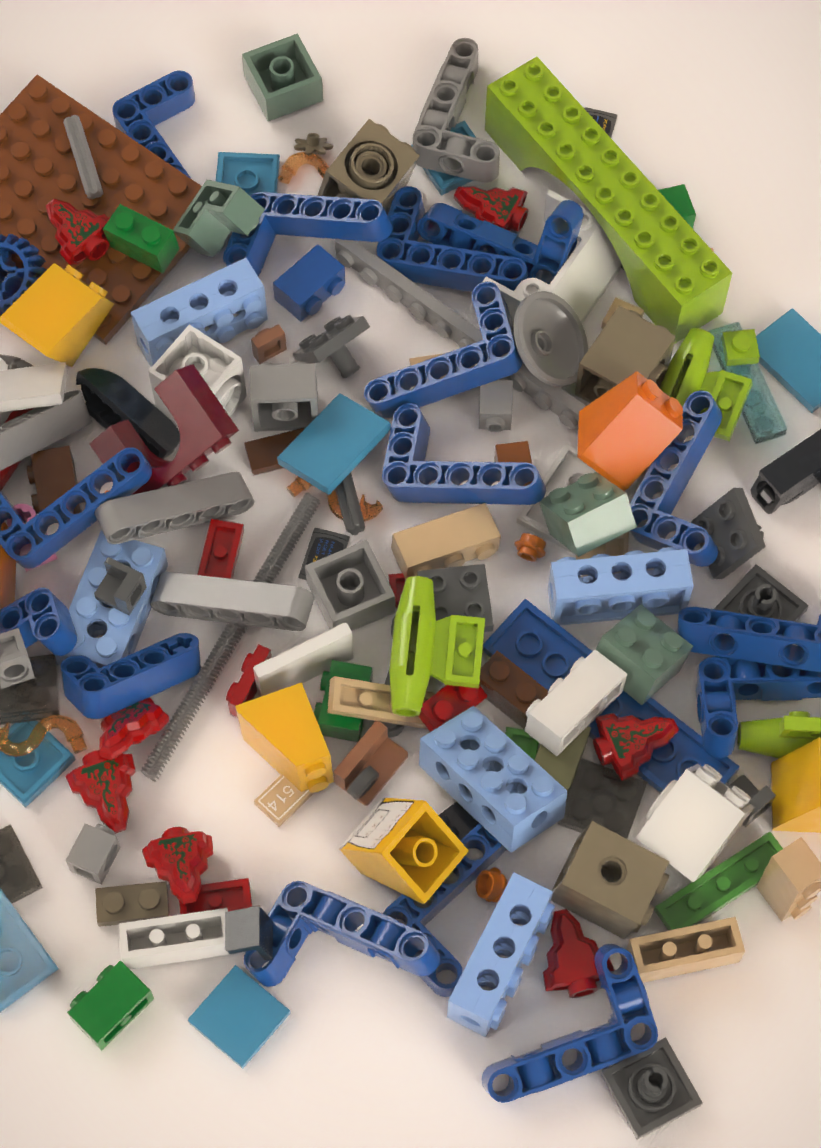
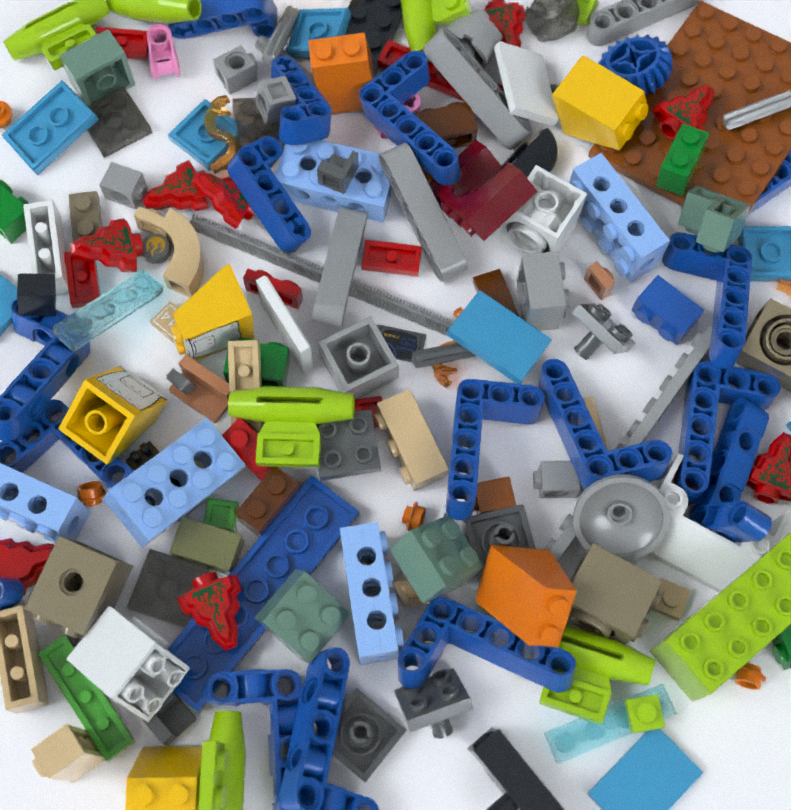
camera: 85 degrees right, 5 degrees up
(181, 815) = (156, 248): none -> dark grey tile
(186, 778) = (187, 264): none -> tan arch
(268, 862) = (107, 310): none -> clear light blue plate
(556, 457) = (498, 527): none -> dark grey plate
(574, 701) = (246, 551): white brick -> none

